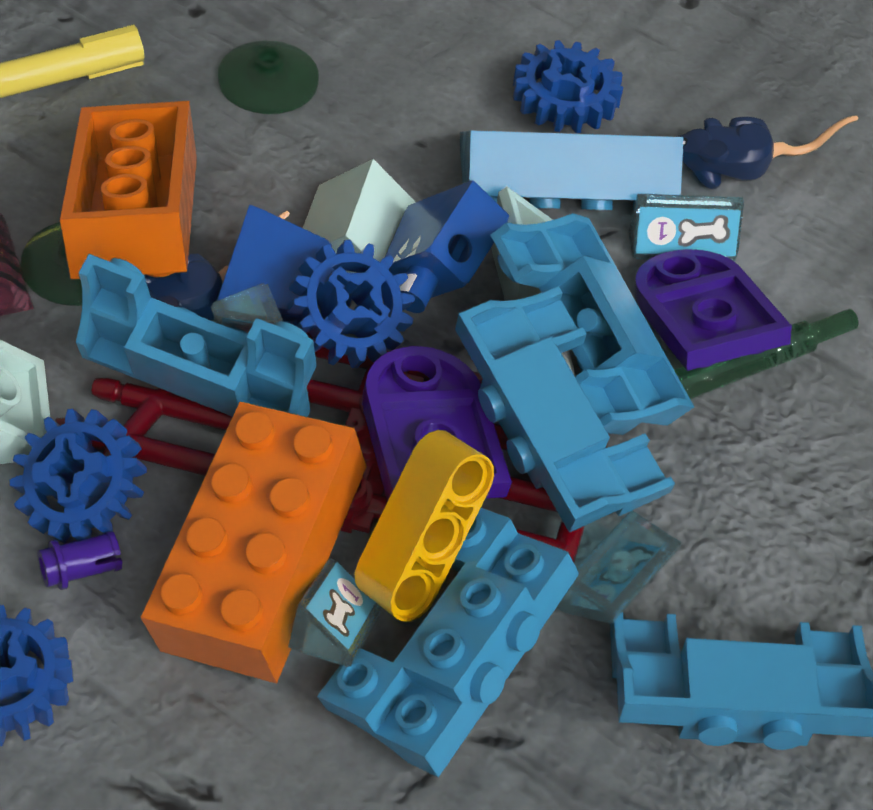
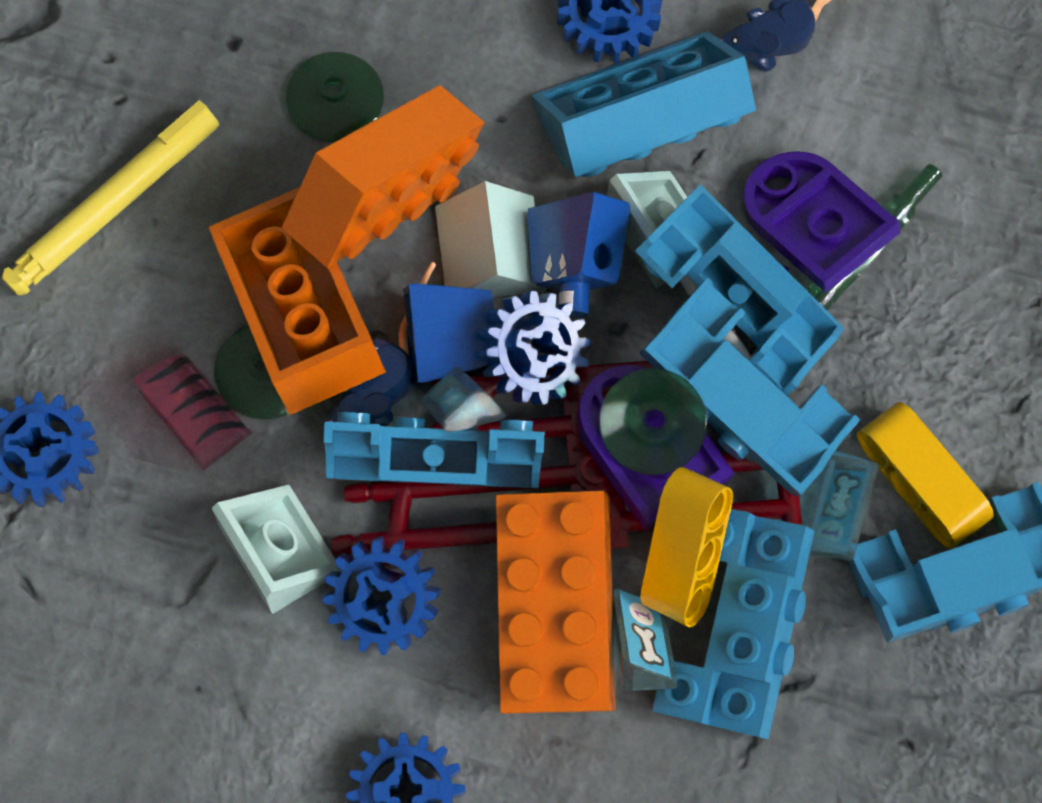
camera: 20 degrees left, 20 degrees up
(79, 559) = (414, 665): dark purple pin -> none
(266, 104) = (382, 176): none -> orange brick
(427, 367) = (647, 447): none -> dish
(685, 222) = (767, 132): slope -> none
(731, 573) = (925, 475): none -> yellow beam

